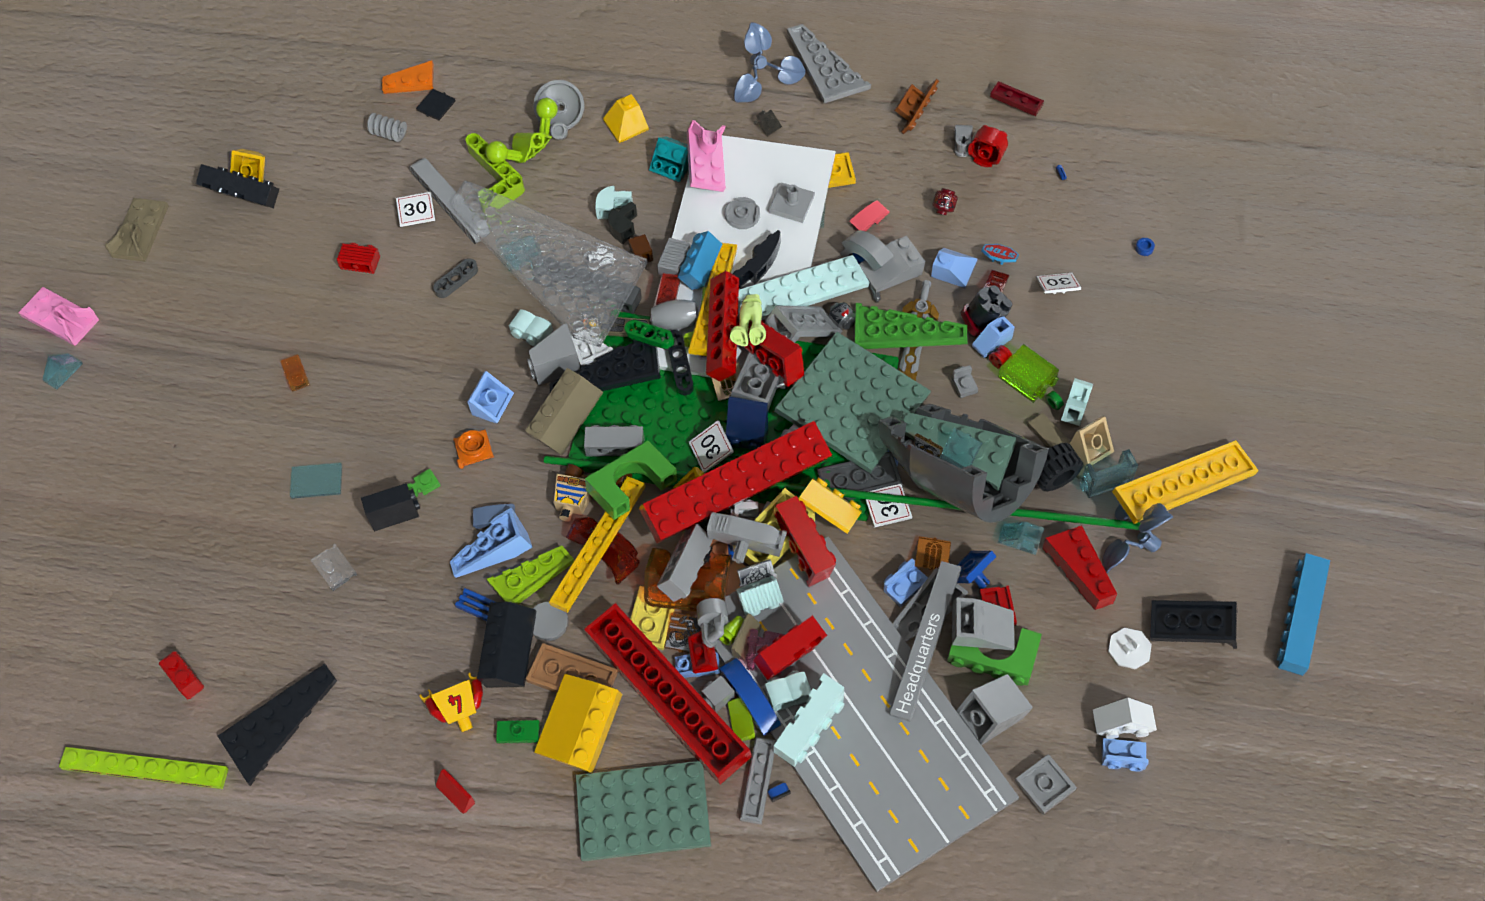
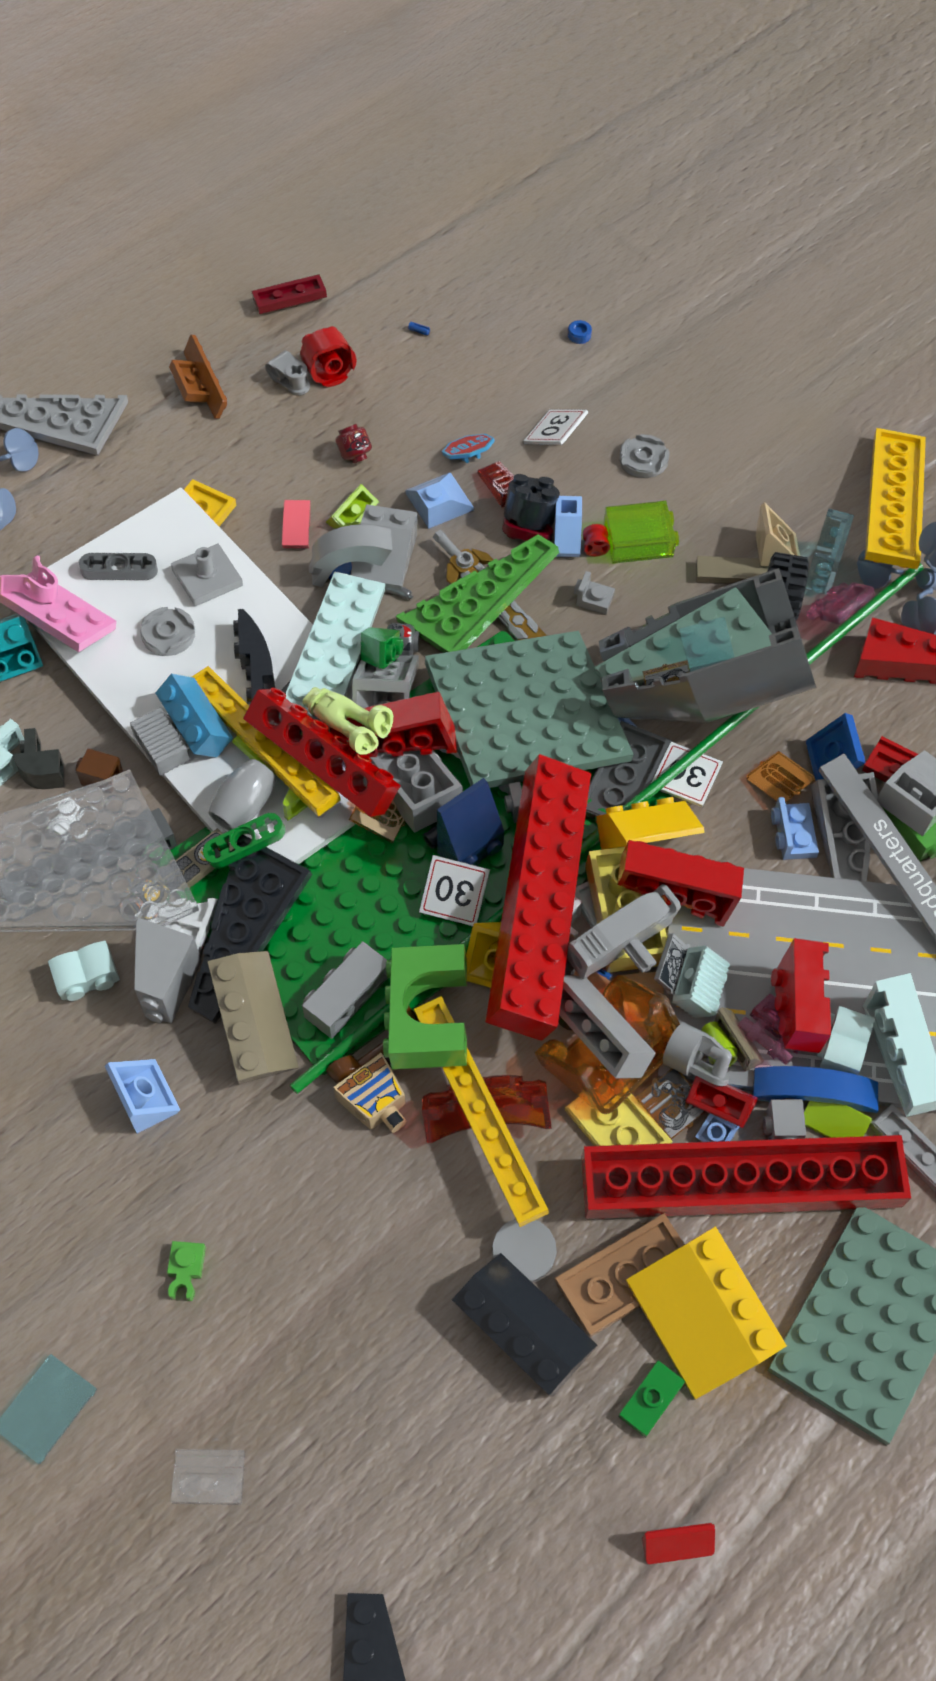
camera: 55 degrees left, 0 degrees up
(391, 506) = (192, 1330): black brick -> none
(456, 702) = (556, 1448): yellow torso -> none
(463, 598) = (422, 1311): blue tile -> none
(472, 447) = (189, 1166): orange hat -> none
(484, 515) = (316, 1209): sand blue slope -> none
(498, 543) = (362, 1234): light blue wedge -> none
(526, 579) = (442, 1238): lime wing -> none
(668, 288) = (195, 779): clear red plate -> none
(680, 362) = (309, 837): black beam -> none
(761, 170) = (110, 559): none -> dark grey beam
(767, 122) = (63, 521): clear smoke bracket -> none
(822, 307) = (380, 646): none -> green slope
(913, 232) = (352, 509): none -> lime slope
(1021, 536) = (836, 679): clear light blue slope -> none
(1054, 400) = (693, 534): green tile -> none
(1077, 402) = (714, 519): light aqua brick -> none
(1081, 505) = (841, 602): none -> clear pink plate
(1088, 340) = (644, 456): none -> light grey tile

